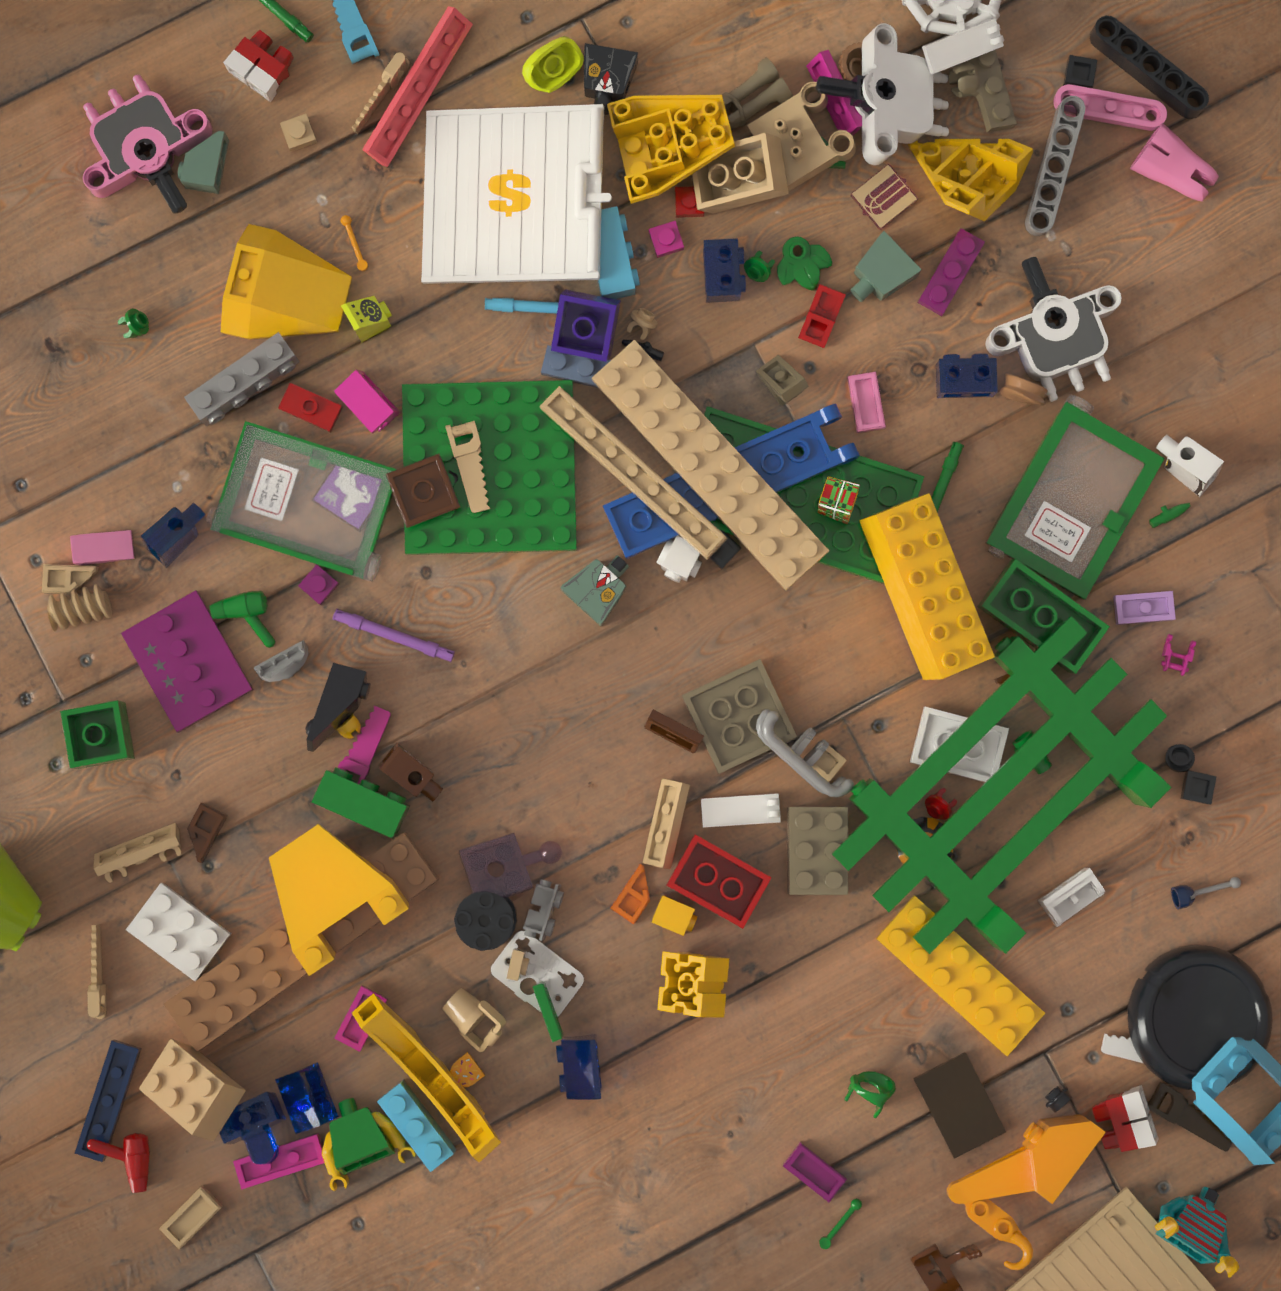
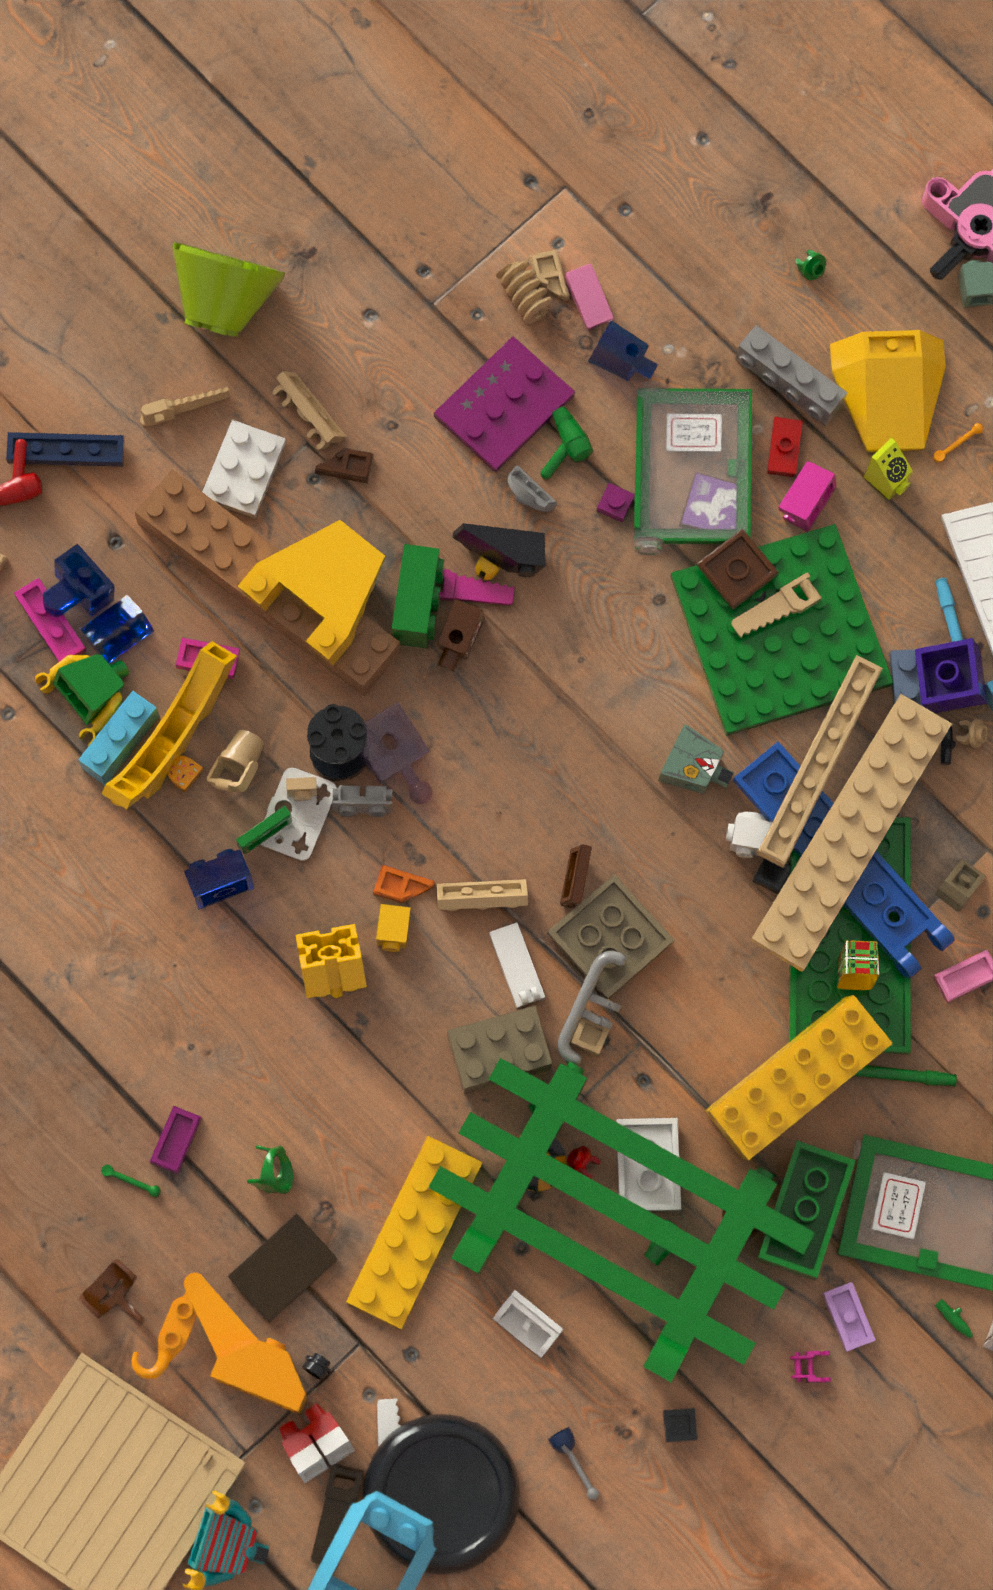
camera: 70 degrees right, 10 degrees down
(97, 734) = (409, 340): green brick -> none
(192, 1090) = (97, 517): tan brick -> none
(358, 622) = (586, 620): medium lavender piece -> none
(718, 881) = (440, 959): red brick -> none
(1180, 758) = (704, 1397): black plate -> none

